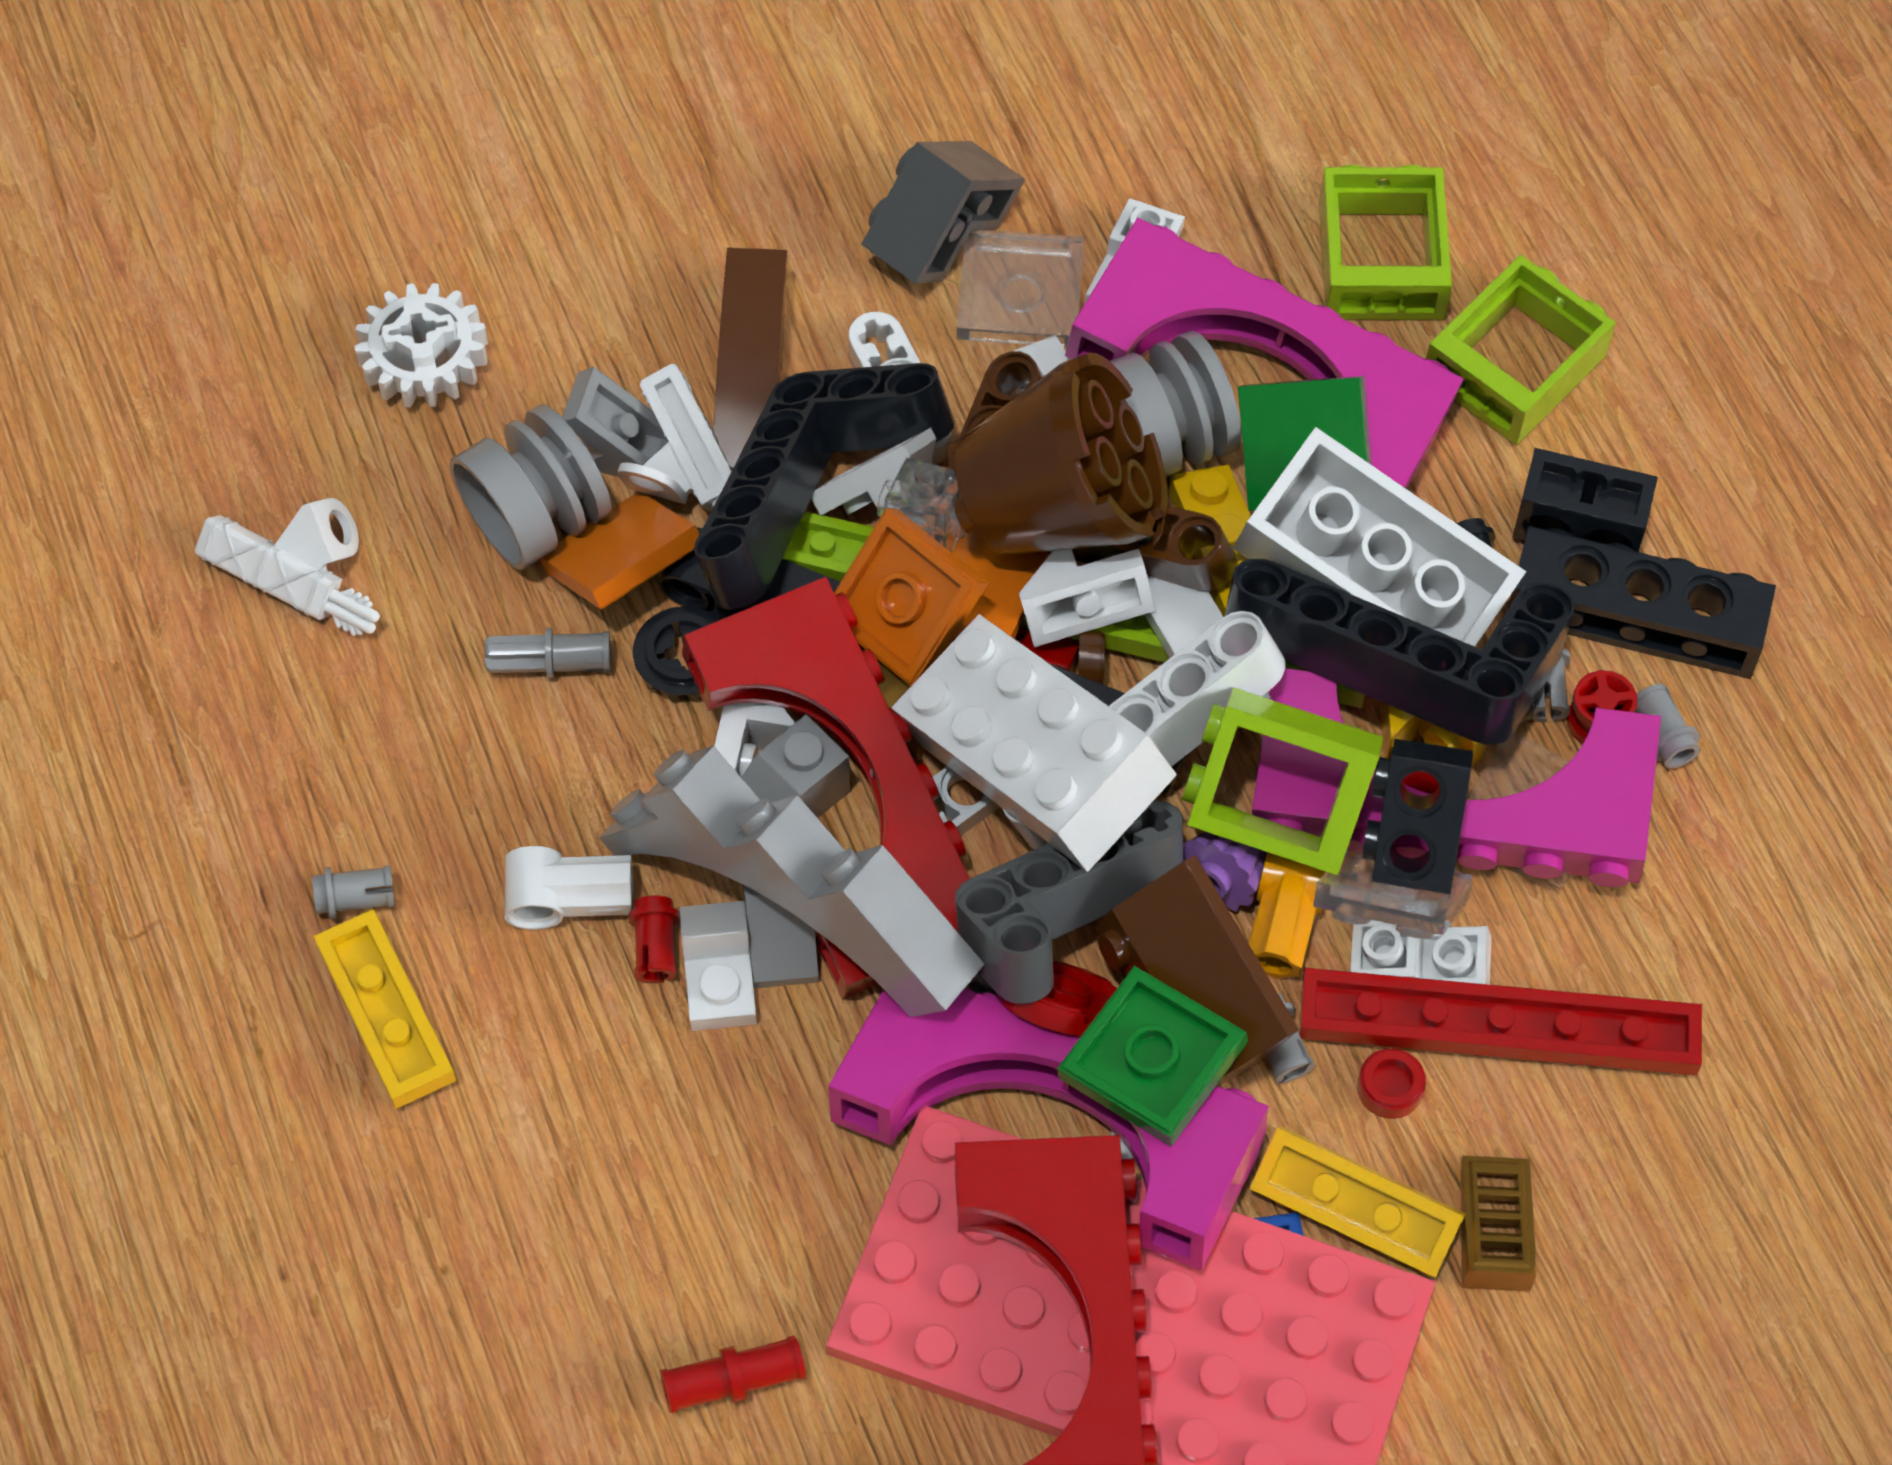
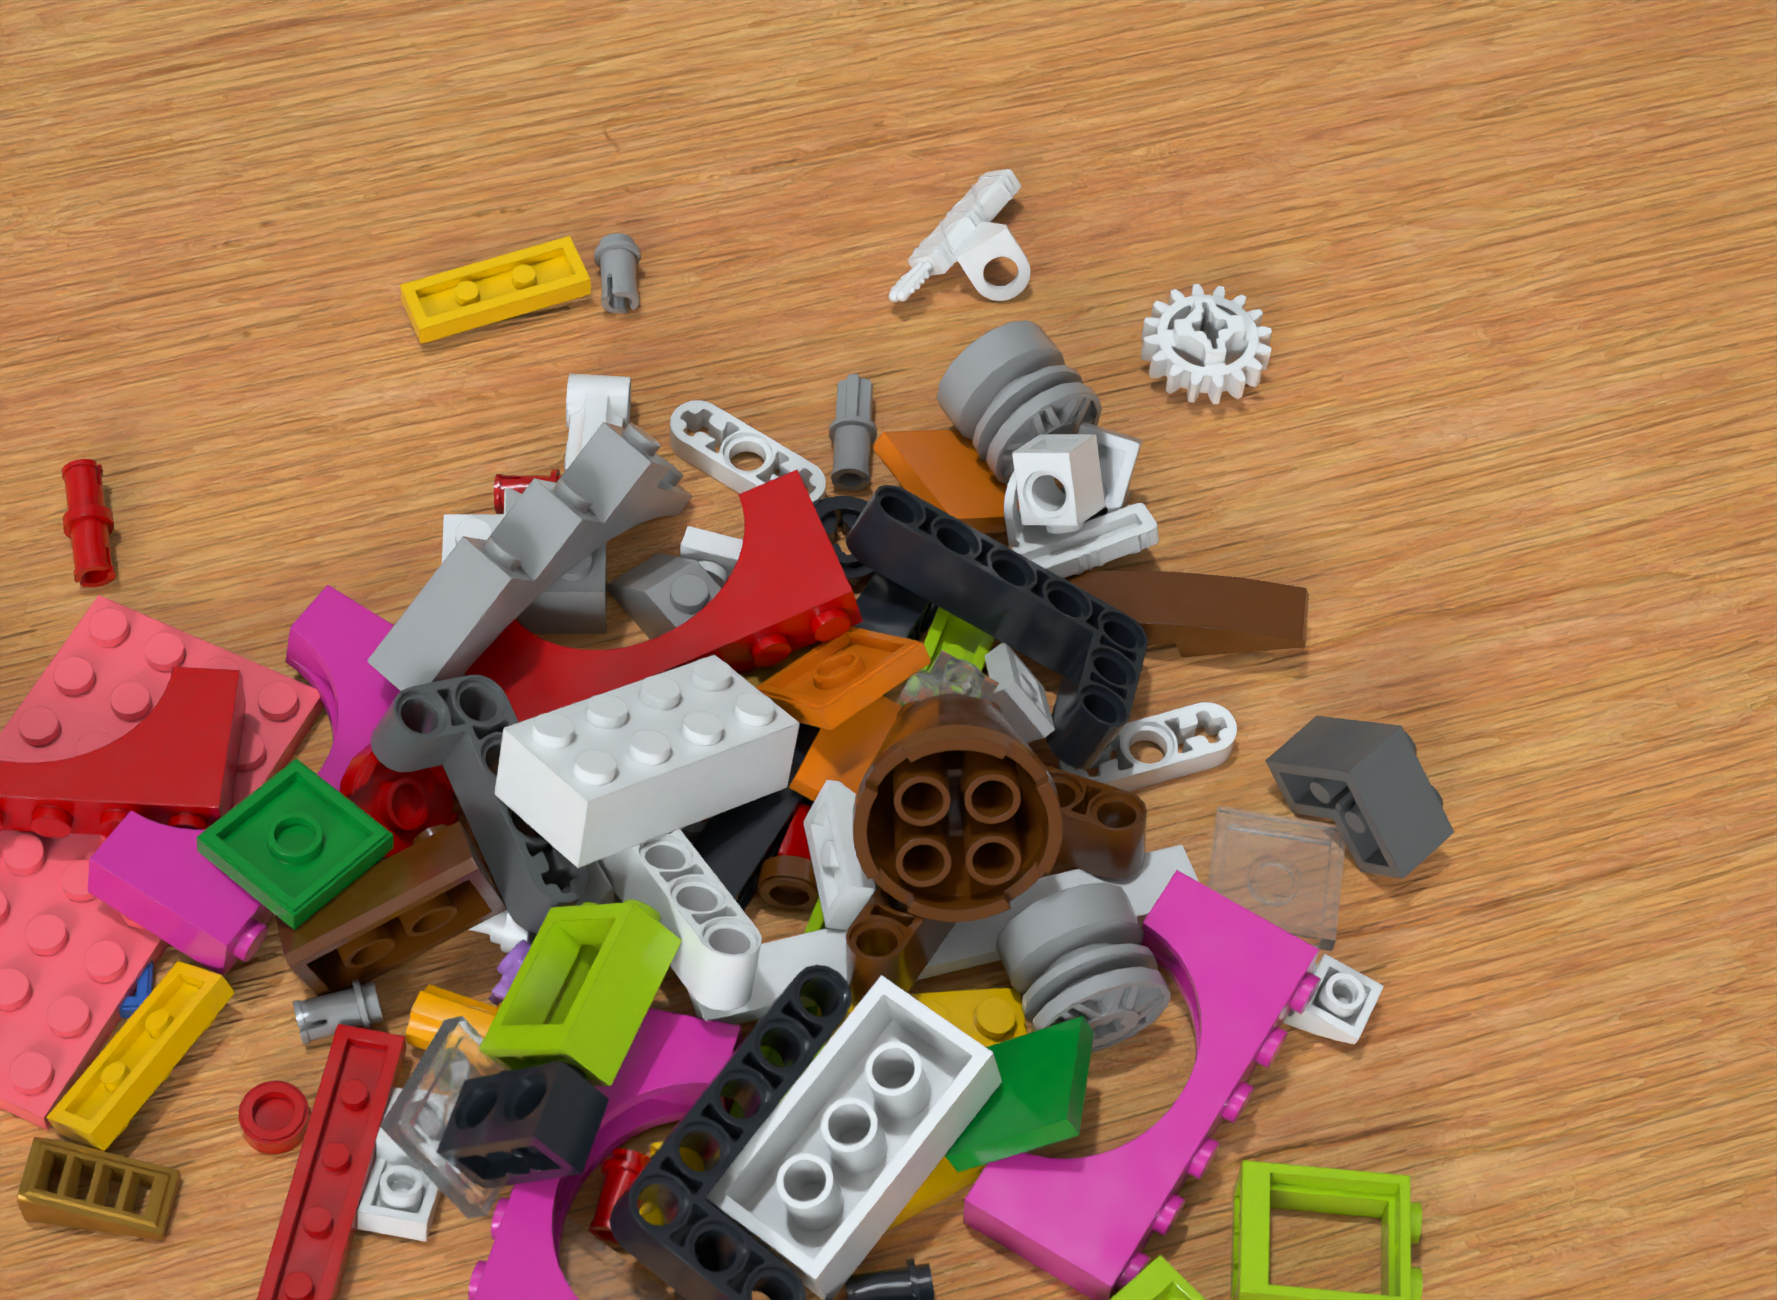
camera: 90 degrees right, 5 degrees down
(590, 776) = (733, 438): none -> white beam
(642, 433) = (1075, 464): none -> white brick

